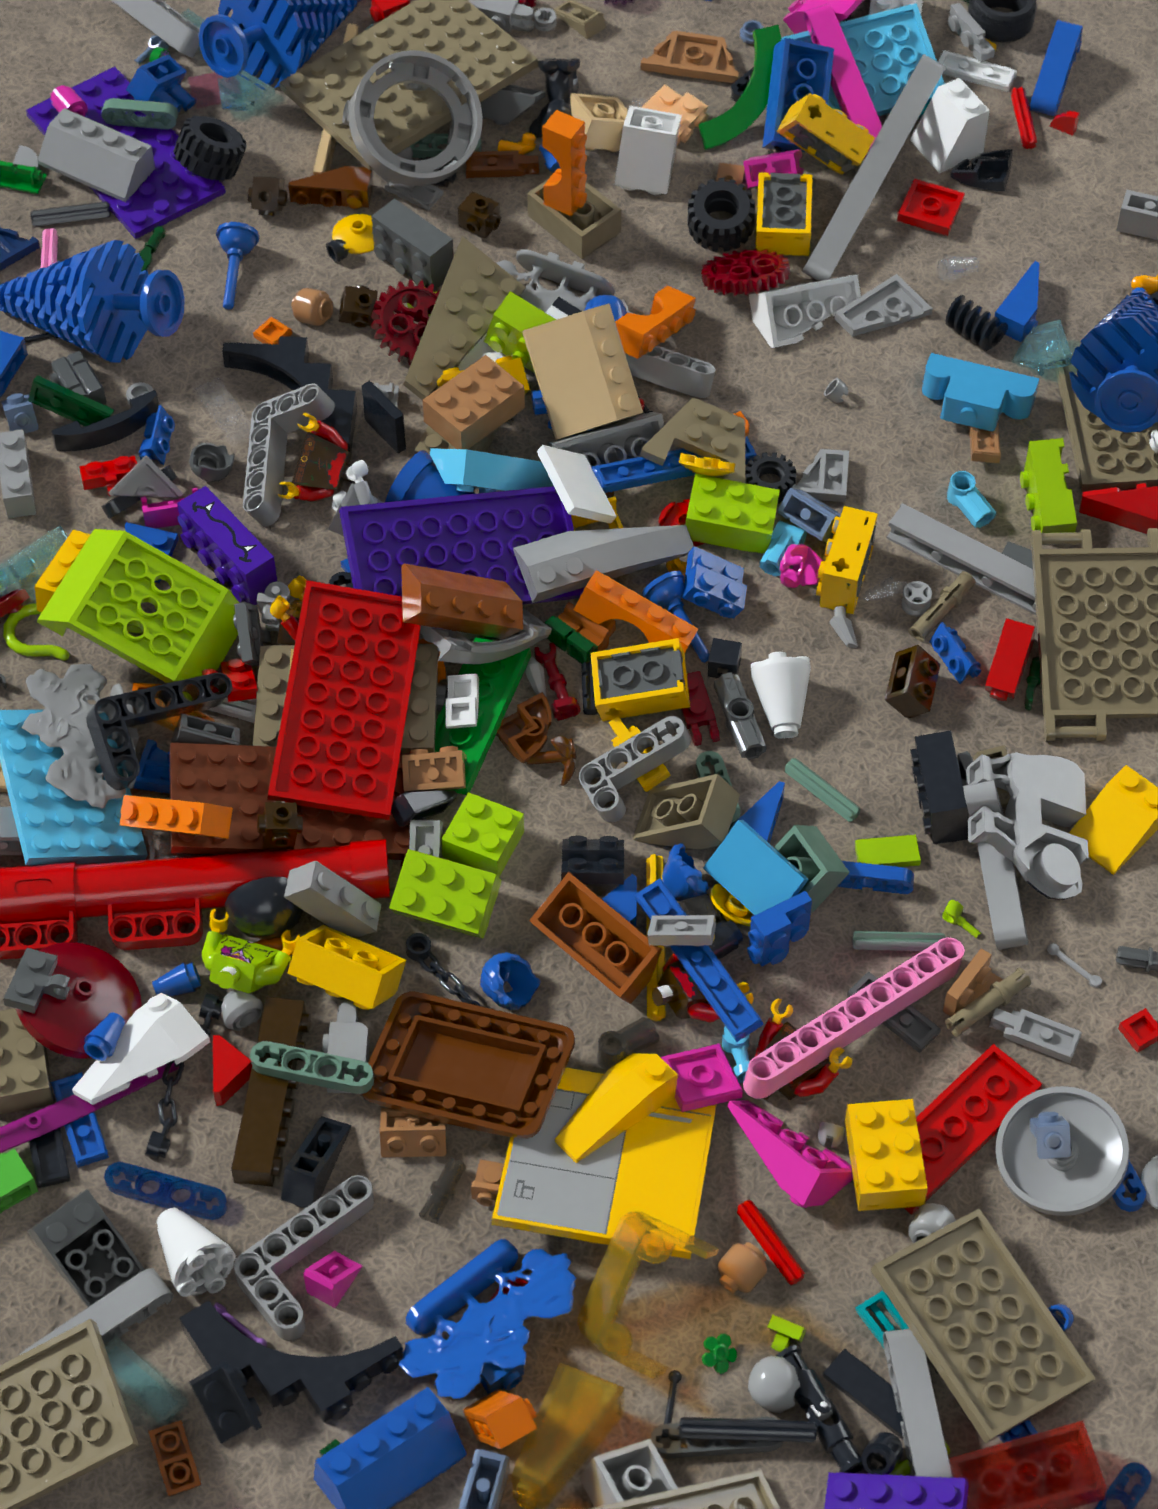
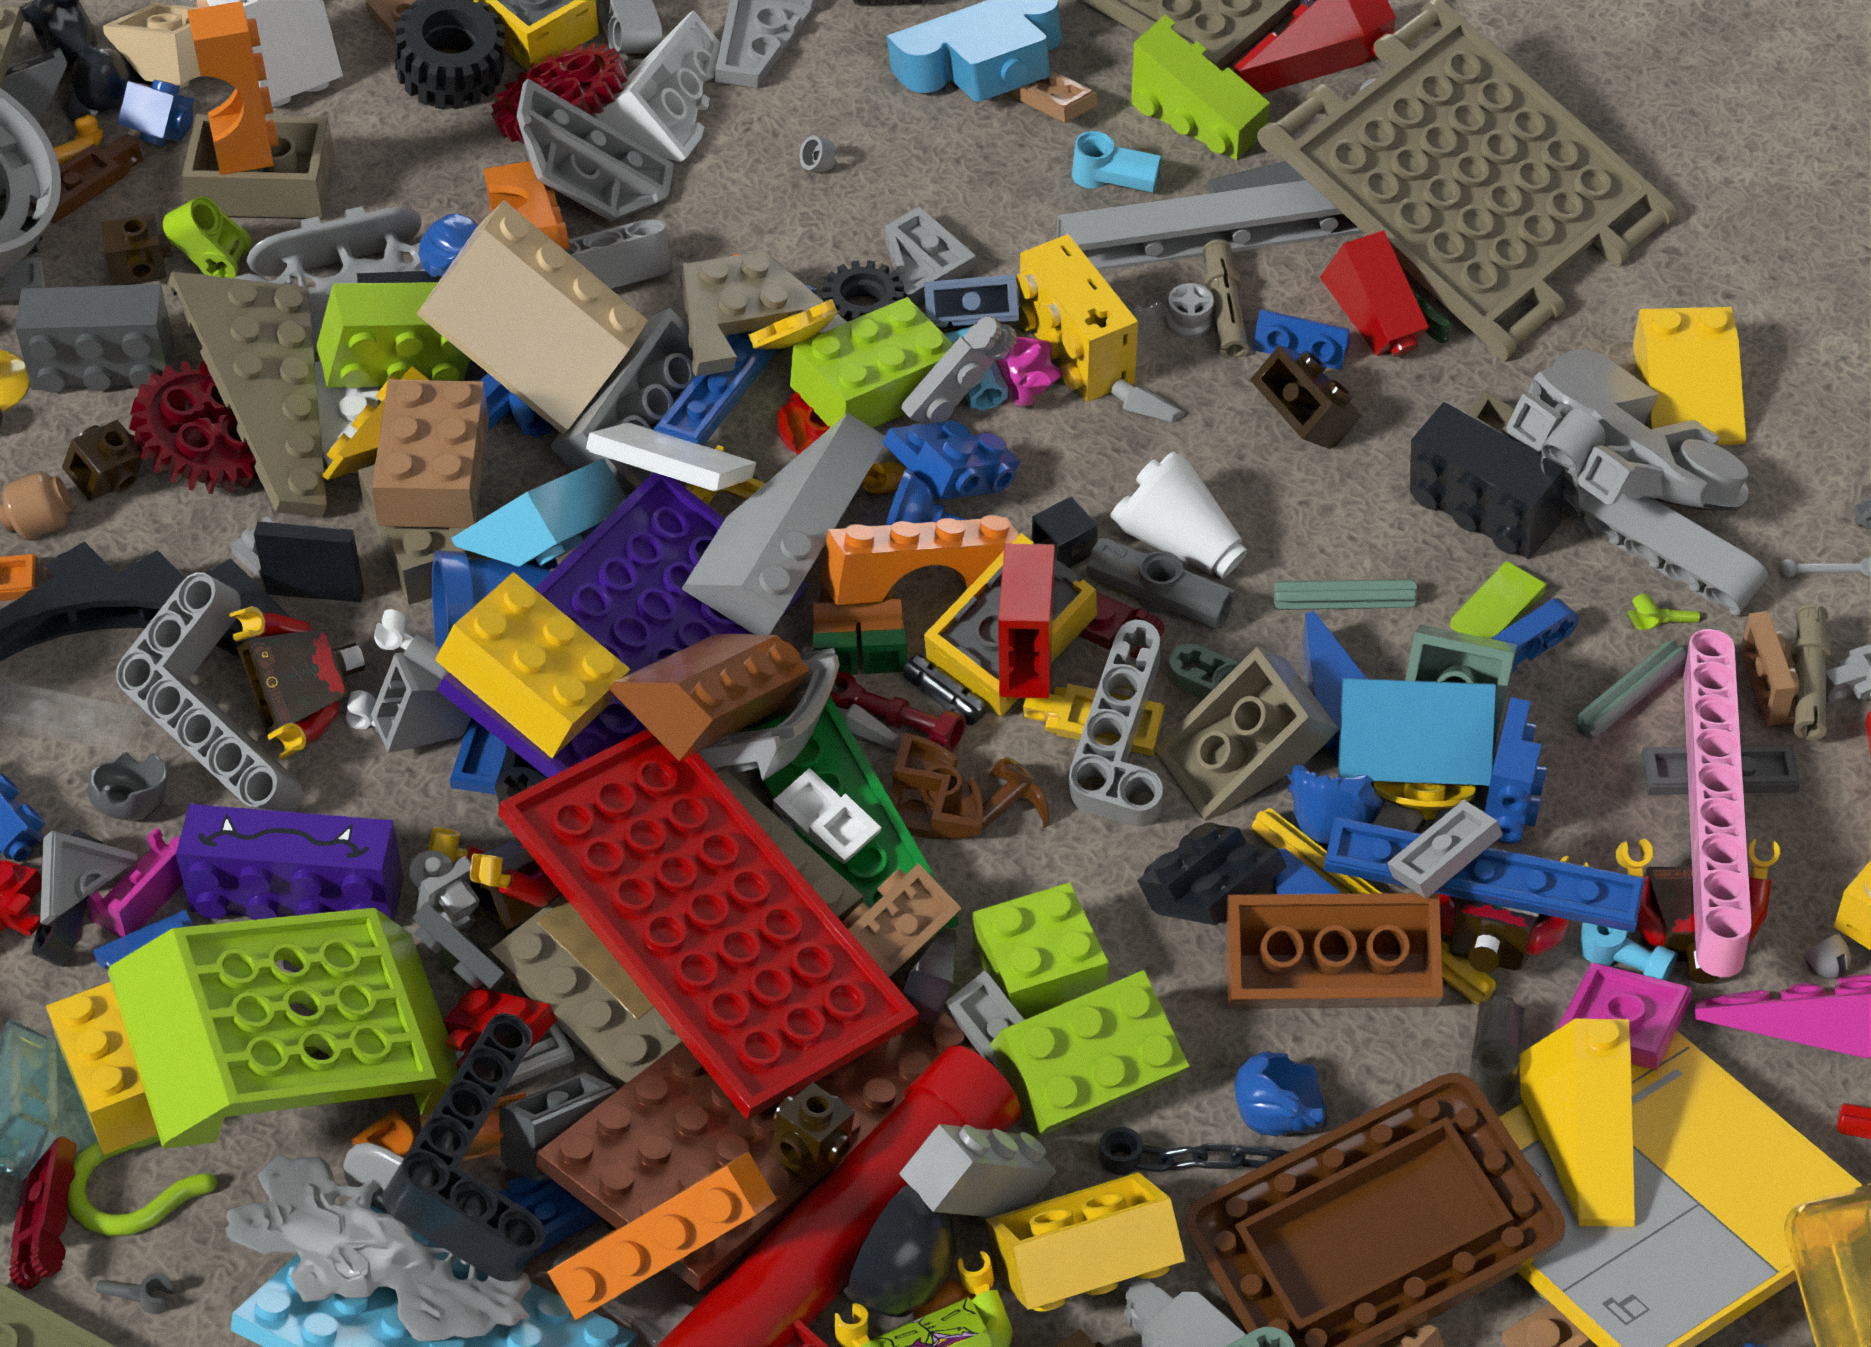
camera: 45 degrees left, 5 degrees down
(383, 528) = (531, 664): none -> yellow brick
(517, 235) = (207, 236): none -> lime piece
(630, 678) = (1026, 620): none -> red slope
(714, 313) = (589, 157): none -> light grey wedge
(758, 543) = (959, 371): none -> light grey hinge

